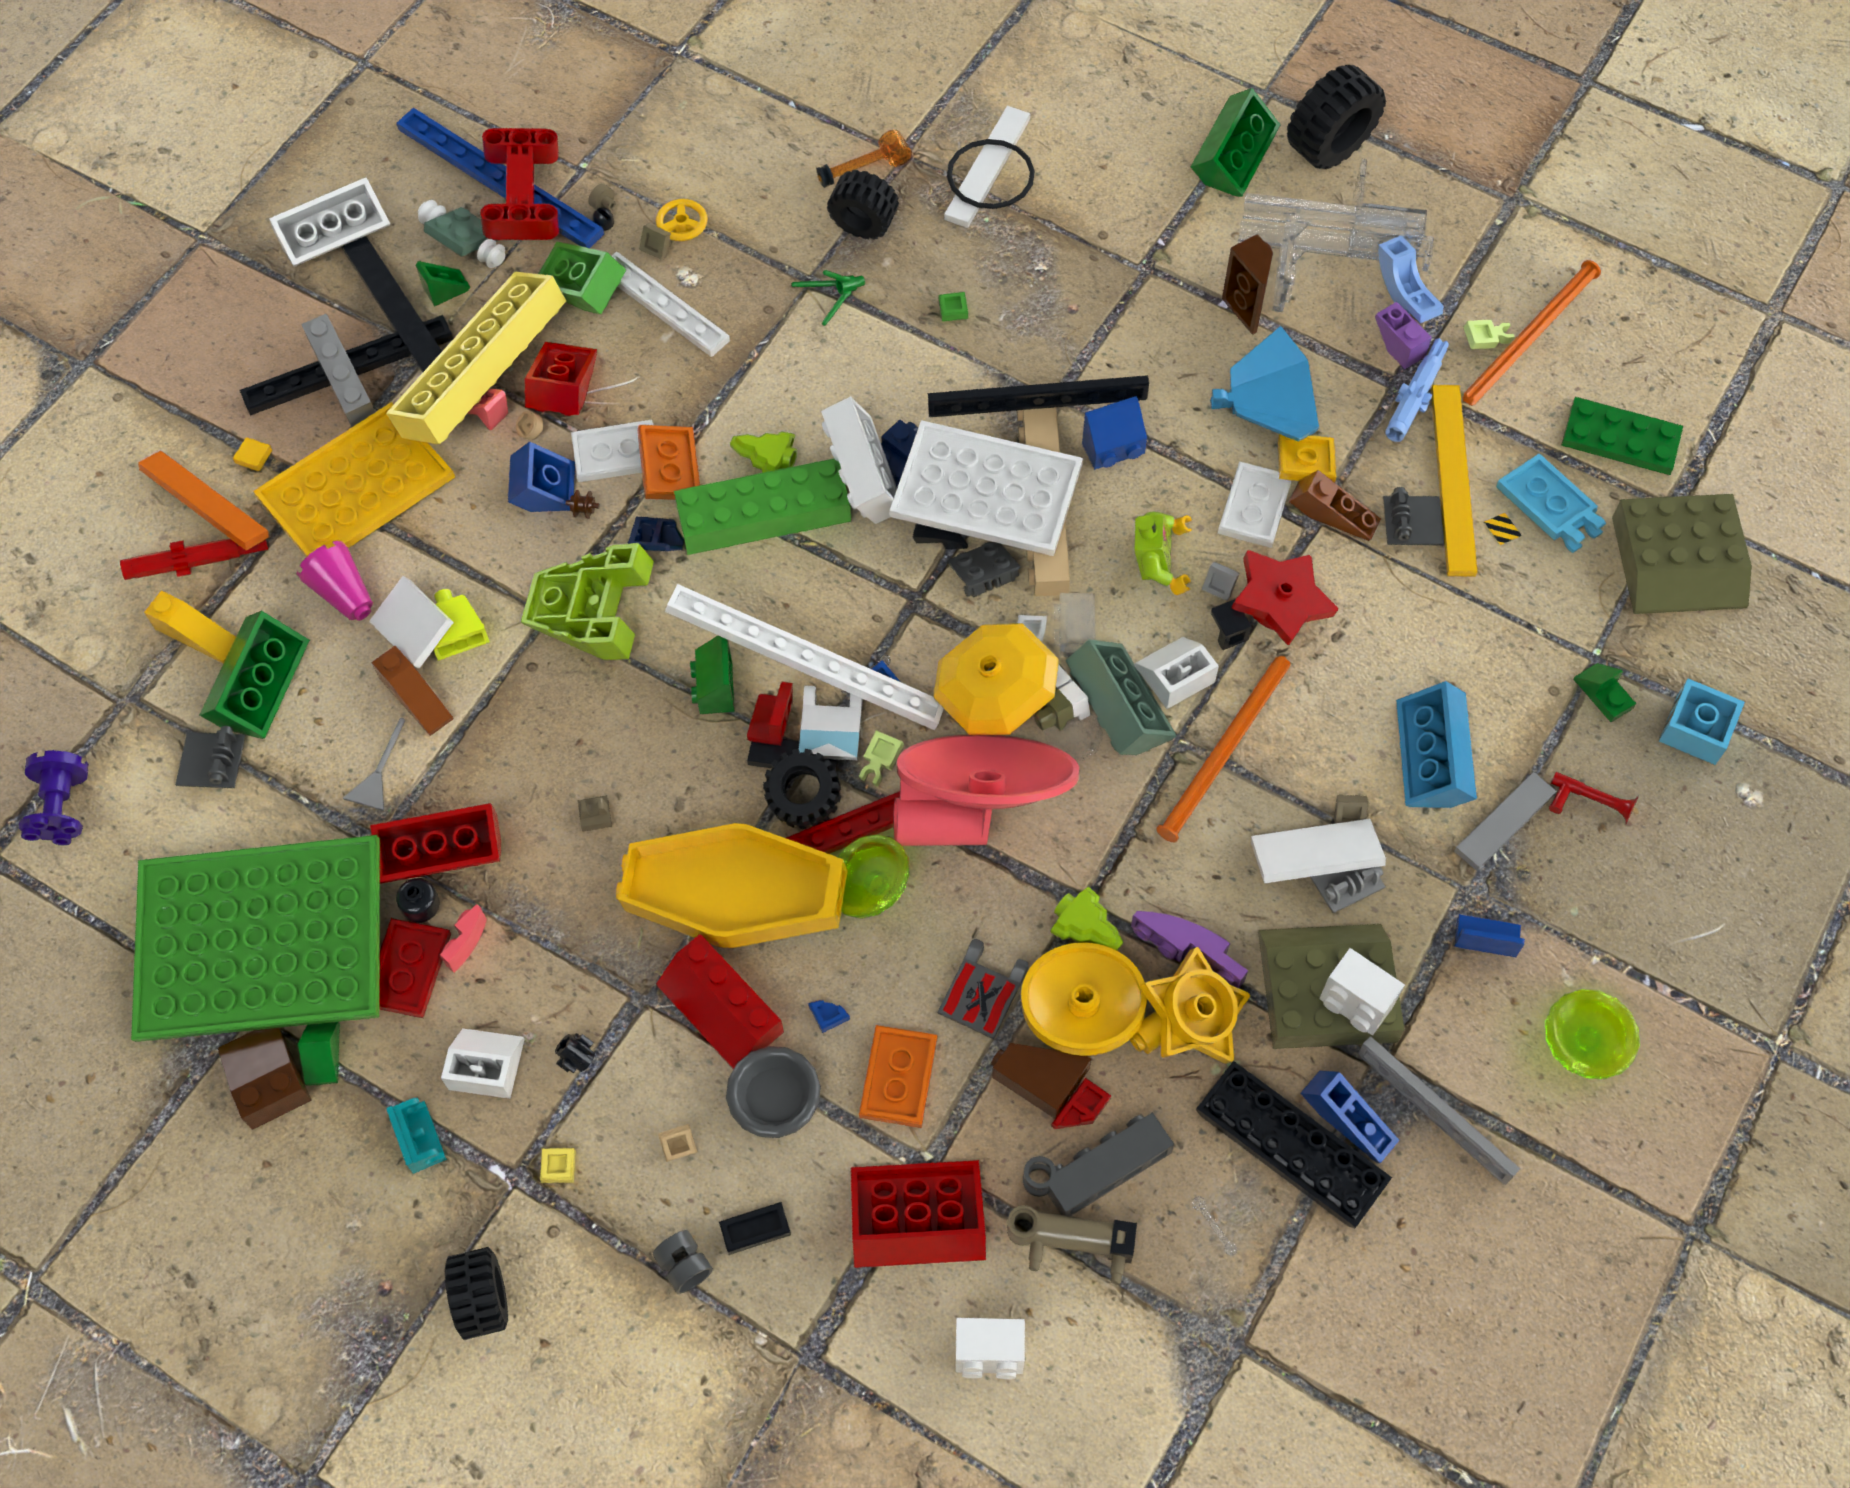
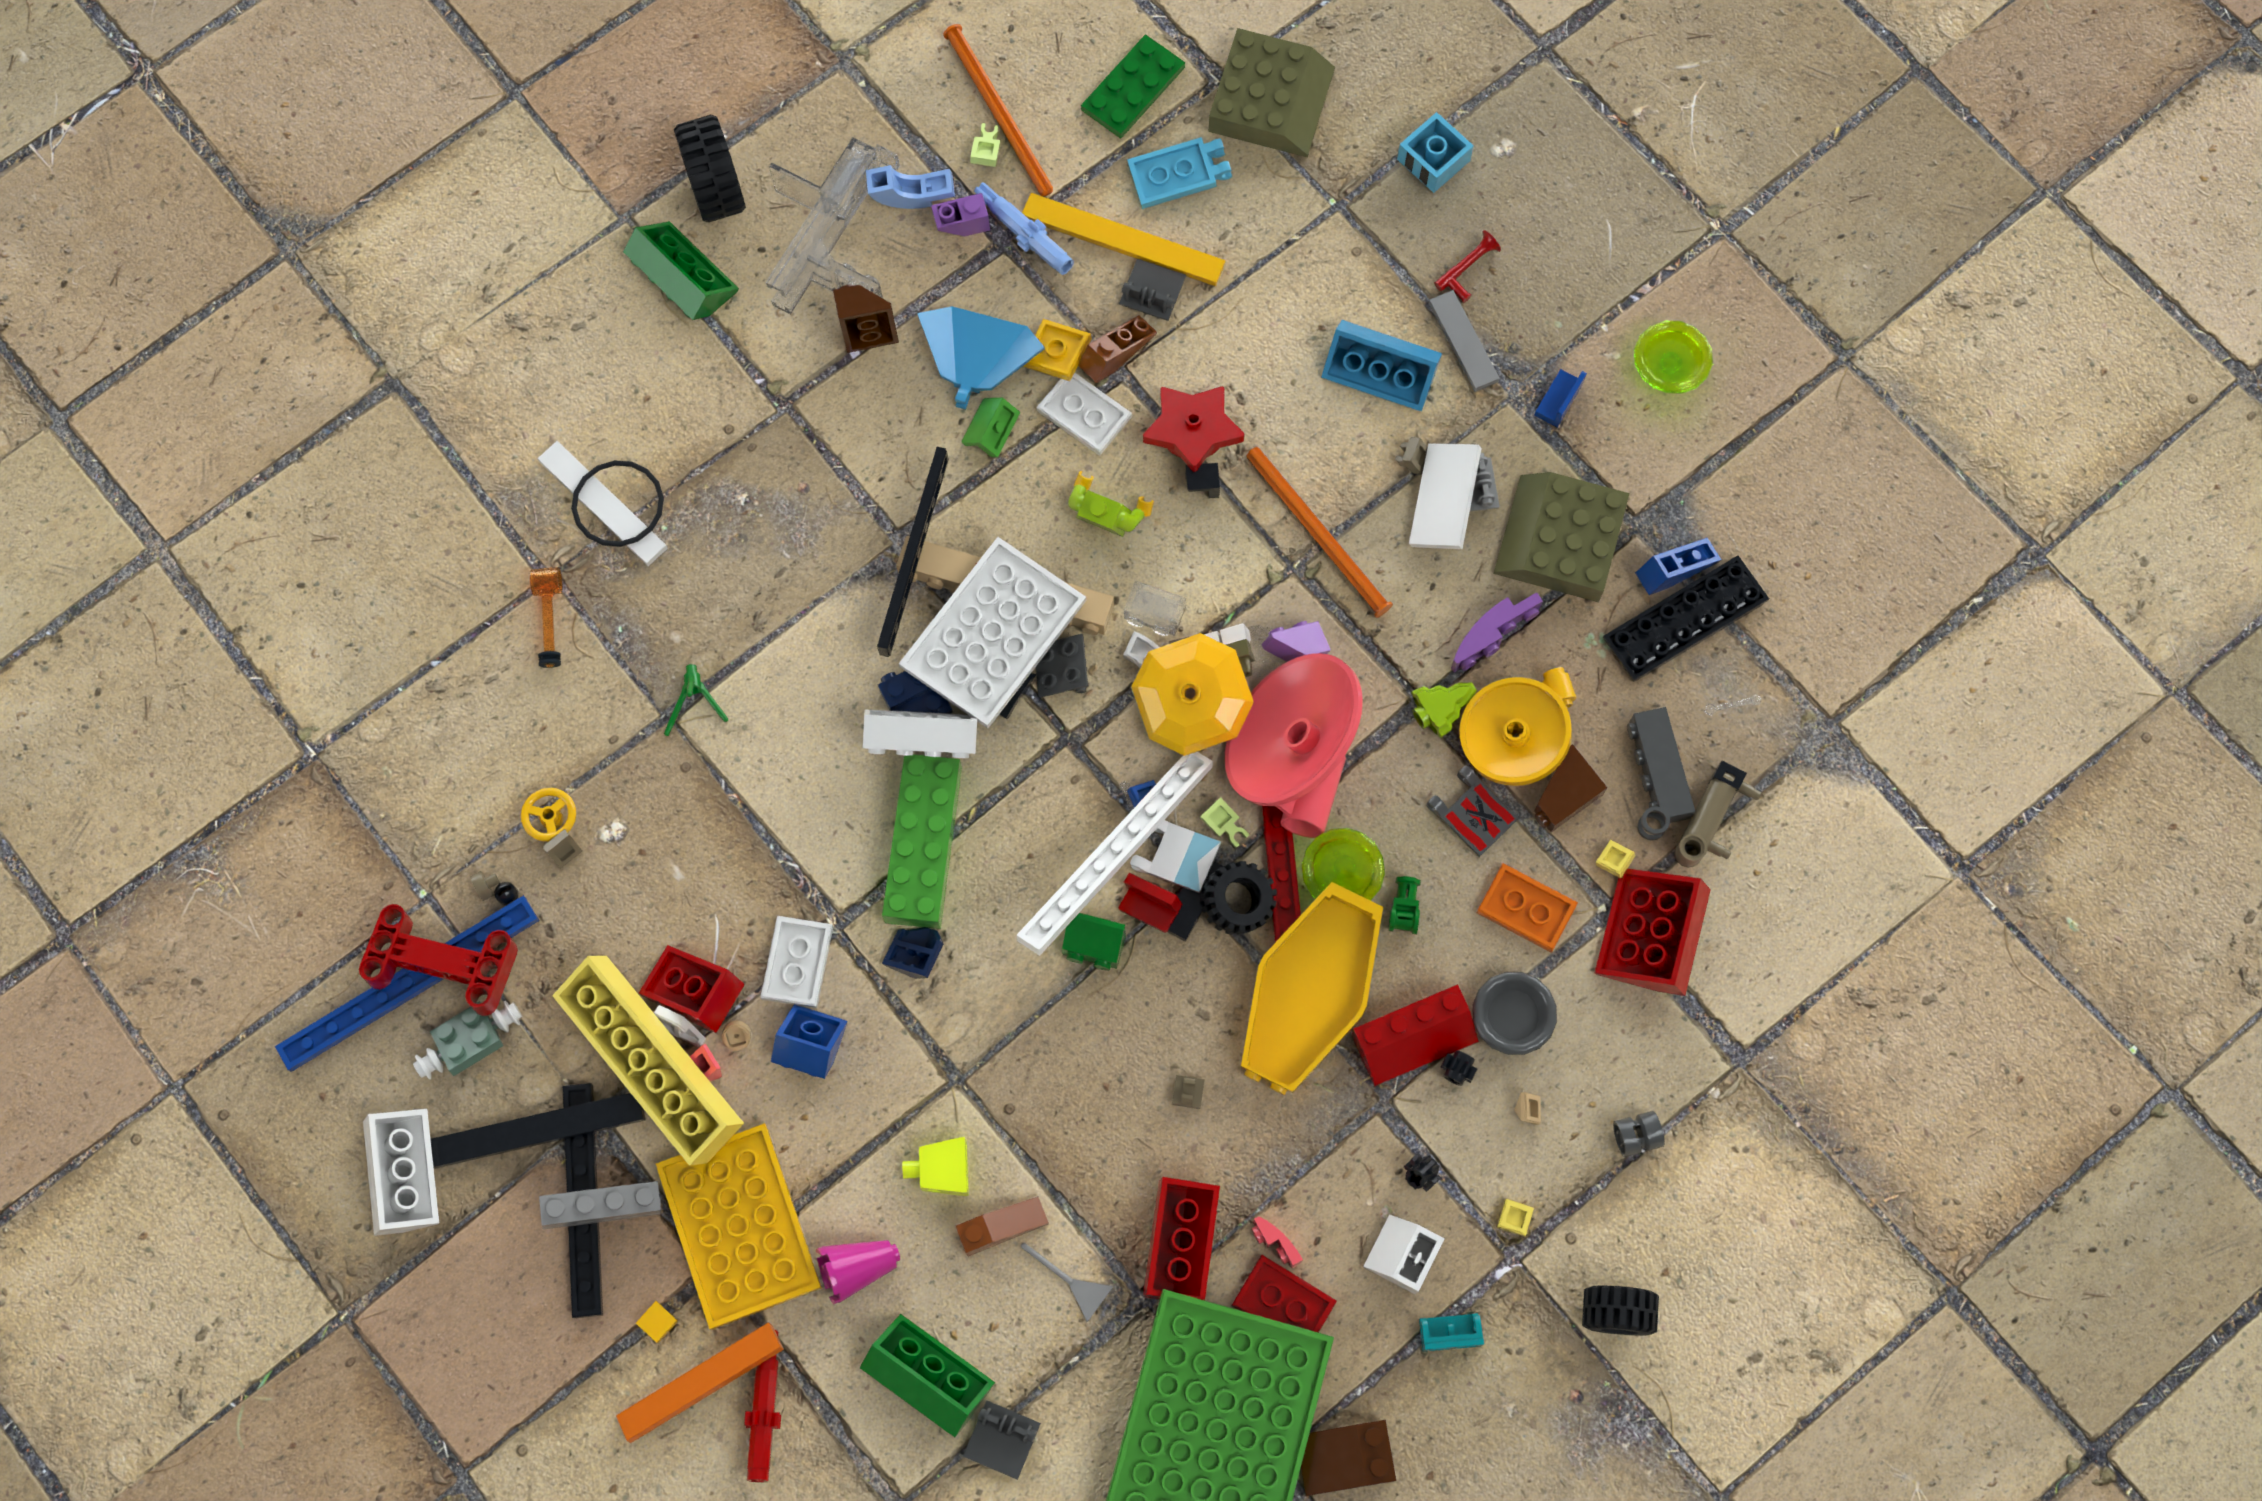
camera: 70 degrees left, 10 degrees up
(189, 626) = (848, 1425): yellow slope -> none
(320, 1053) = (1345, 1401): green slope -> none
(411, 621) = (930, 1205): white tile -> none
(417, 900) = (1227, 1284): black head -> none
(441, 282) = (522, 1075): green slope -> none
(519, 390) = (679, 1026): none -> white tile
(582, 504) = (851, 1009): reddish brown wheel -> none
(582, 599) = (957, 1044): lime wedge -> none
(584, 275) = (578, 931): bright green slope -> none
(667, 460) = (835, 913): orange tile -> none
(671, 308) = (638, 865): white tile -> none
(697, 1055) = (1459, 1068): none -> black gear
(754, 1228) = (1622, 1068): black tile -> none
(768, 451) = (859, 818): lime rock -> none
(828, 1014) = (1452, 948): blue tile -> none
(852, 952) = (1405, 910): none -> green connector
(863, 204) = (615, 633): black tyre -> none
(953, 306) = (757, 593): bright green tile -> none
(985, 1150) = (1615, 858): none -> light yellow tile
(990, 1347) = (1787, 909): white brick -> none
(1083, 1106) = (1604, 766): red tile -> none
(1095, 761) = (1296, 641): none -> slope
(1114, 433) = (973, 501): blue slope -> none
(1119, 697) = (1241, 598): sand green slope -> none
(1178, 670) = (1232, 540): white slope -> none
(1196, 1009) = (1555, 646): yellow plate -> none
(1202, 432) = (991, 425): none -> bright green panel
(1220, 581) = (1156, 471): light grey tile -> none
(1361, 992) = (1602, 510): white brick -> none
(1438, 1111) = (1695, 498): light grey tile -> none
(1502, 528) = (1186, 222): sticker -> none
(1603, 689) = (1373, 212): green slope -> none

